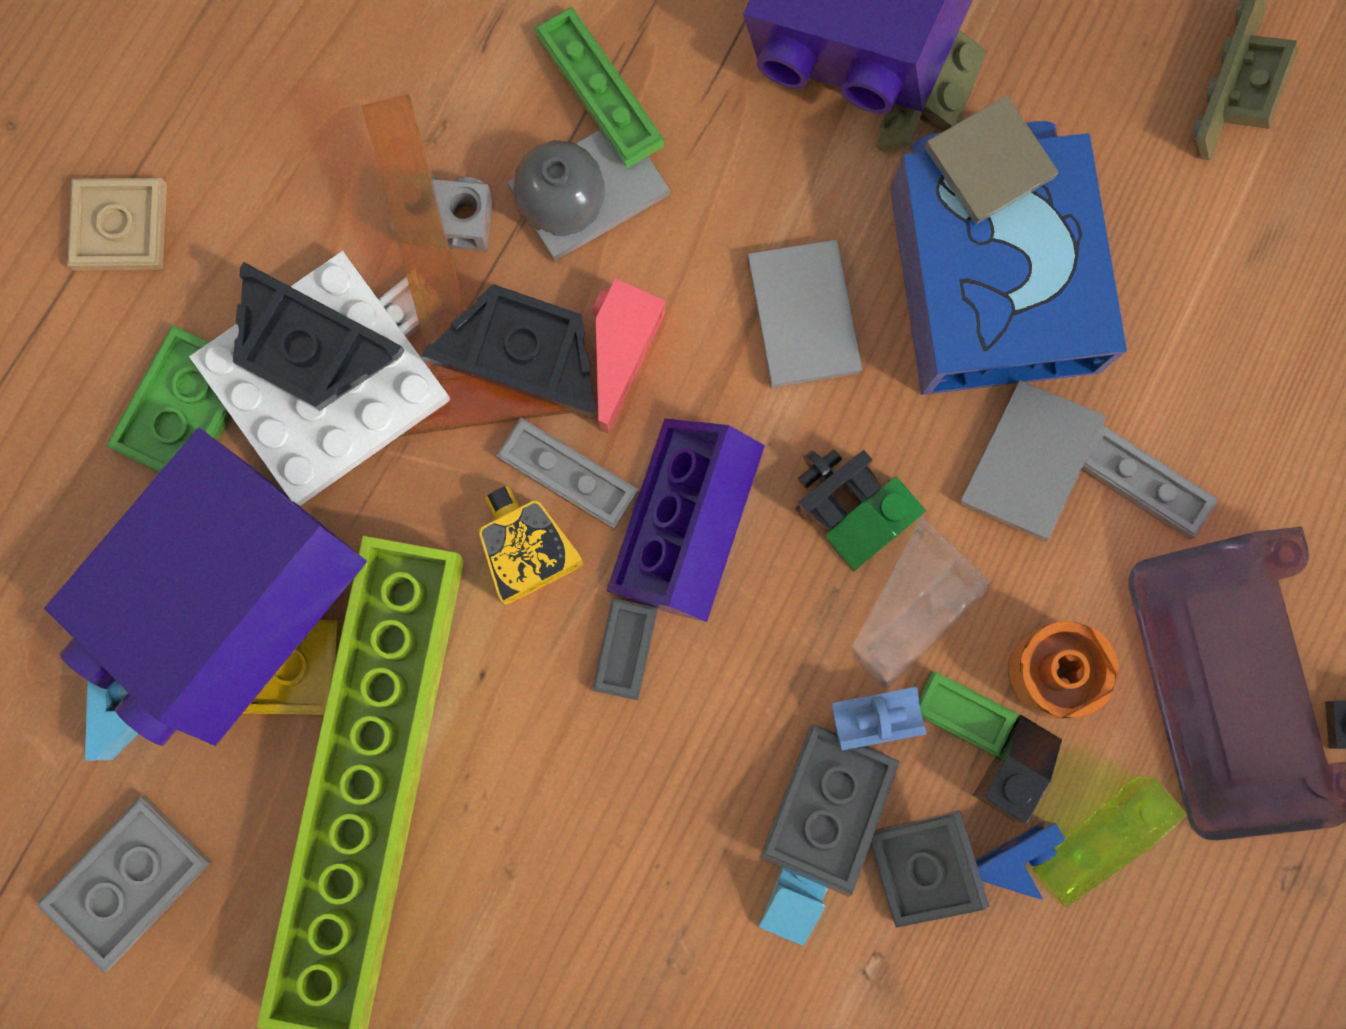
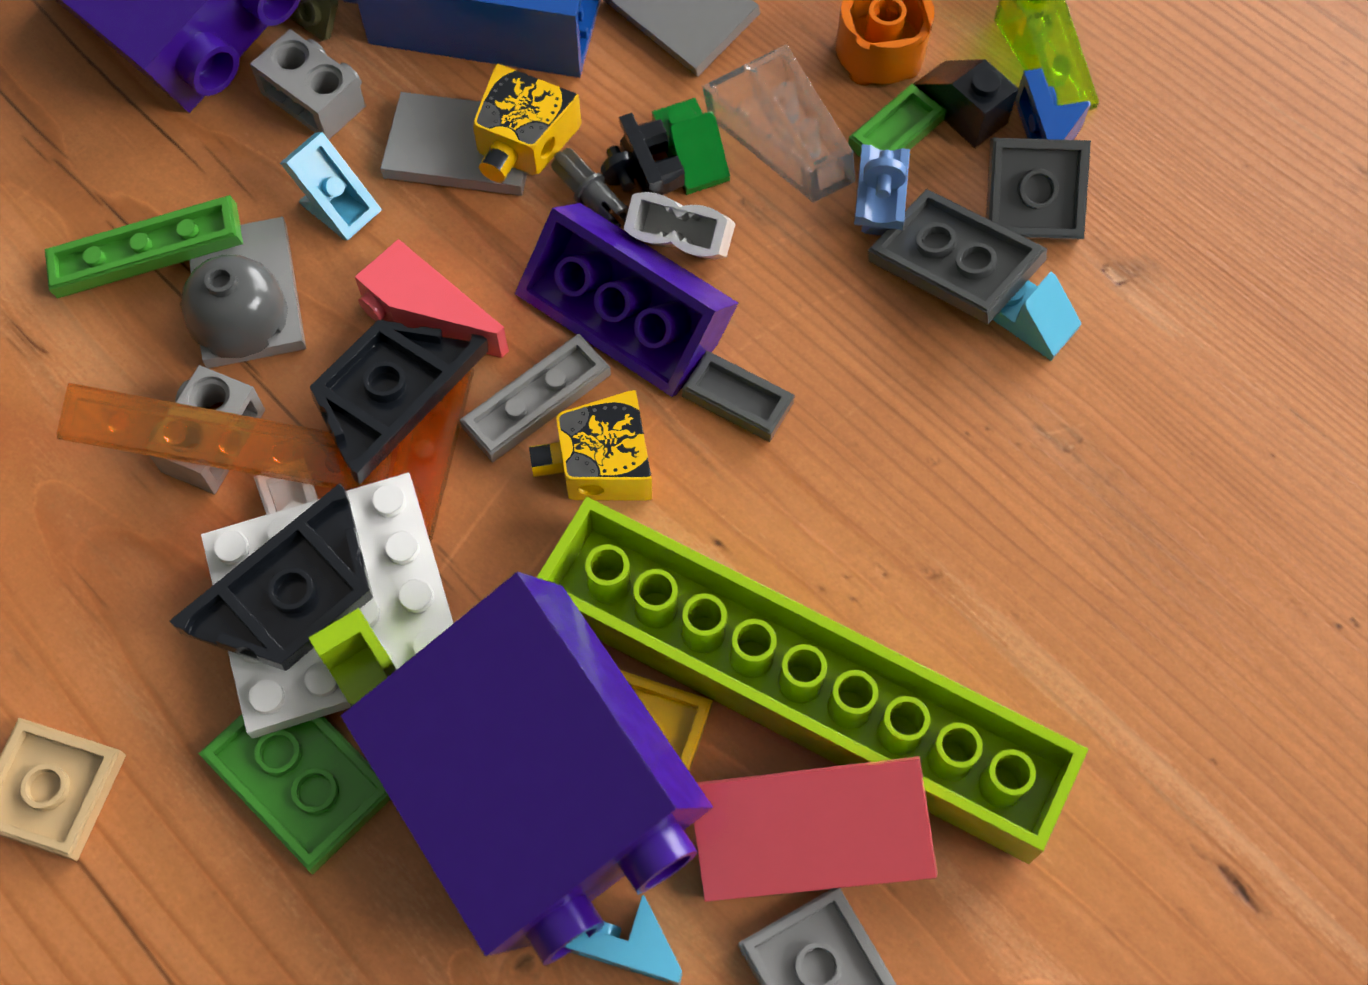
camera: 70 degrees left, 15 degrees down
(233, 833) = (815, 830): none -> coral tile
(260, 420) = (353, 655): none -> lime panel
(707, 219) = (330, 187): none -> slope
(766, 551) = (688, 227): none -> white brick
(791, 447) = (588, 186): none -> dark grey axle
(807, 153) = (309, 83): none -> light grey brick
(826, 362) = (522, 123): none -> torso

